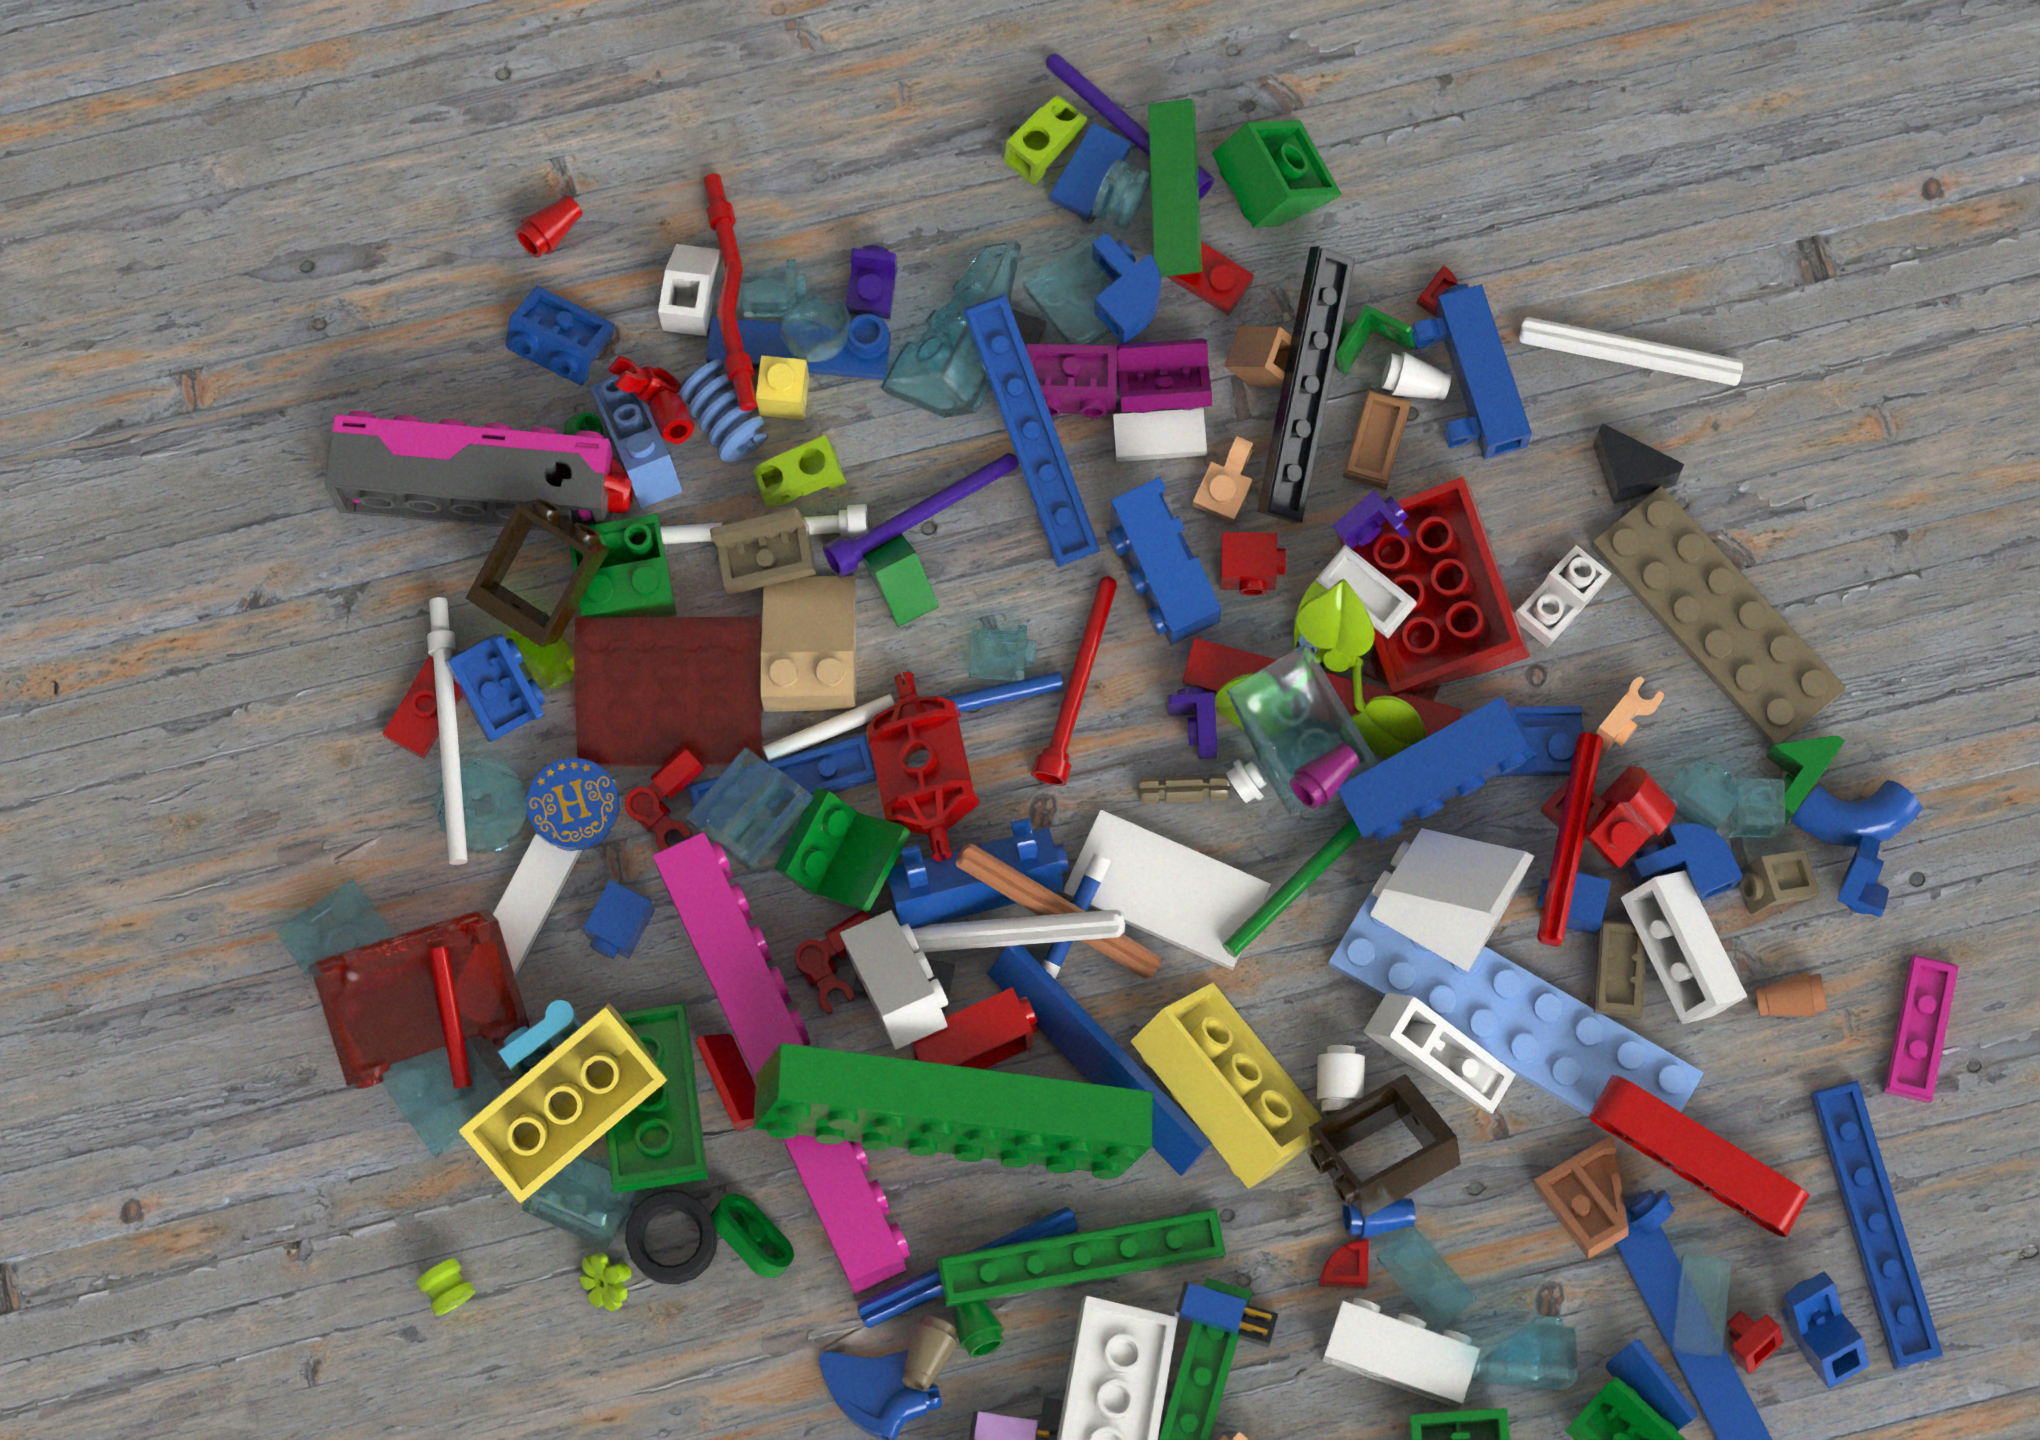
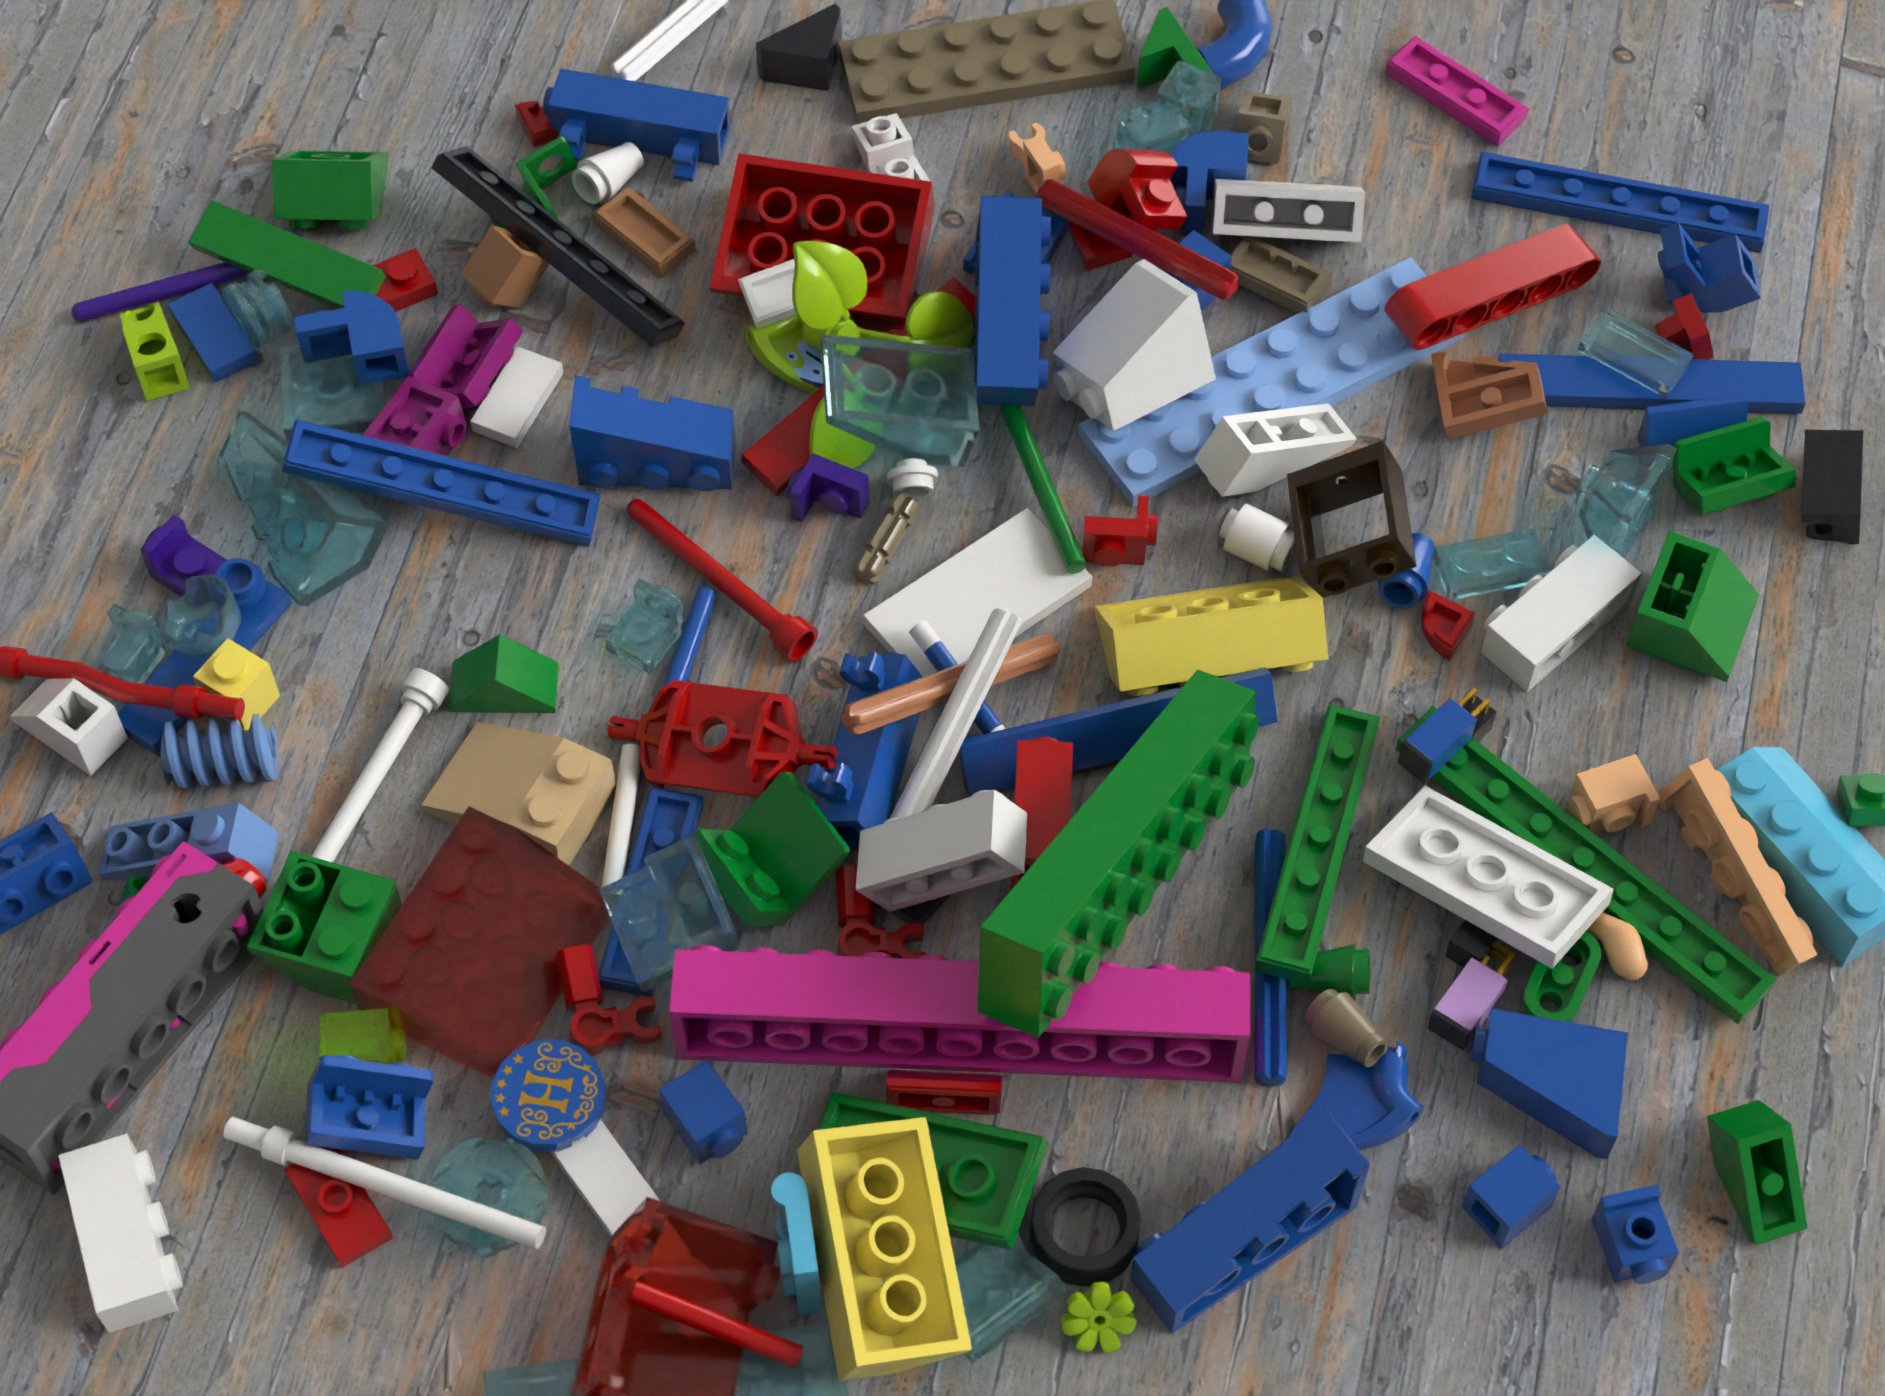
camera: 65 degrees left, 15 degrees down
(326, 575) = (120, 1232): none -> white brick
(514, 610) = (274, 910): dark brown window -> none
(660, 392) = (166, 798): red bar -> none
(725, 1354) = (1251, 1222): none -> blue wedge
(752, 1235) = (1140, 1139): green plate -> none
(764, 550) = (396, 779): dark tan bracket -> none
(799, 472) = (336, 713): lime leg -> none
(846, 553) = (453, 708): dark purple piece -> none
(1225, 487) = (606, 365): light nougat plate -> none
(1250, 562) = (697, 371): red brick -> none
(1271, 967) = (1120, 540): none -> red bracket
(1321, 777) = (963, 388): magenta cone -> none
(1364, 520) = (729, 231): dark purple bracket -> none
(1651, 1210) = (1527, 342): blue plate -> none
(1793, 996) = (1377, 158): nougat cone -> none
(1859, 883) = (1294, 57): blue bracket -> none

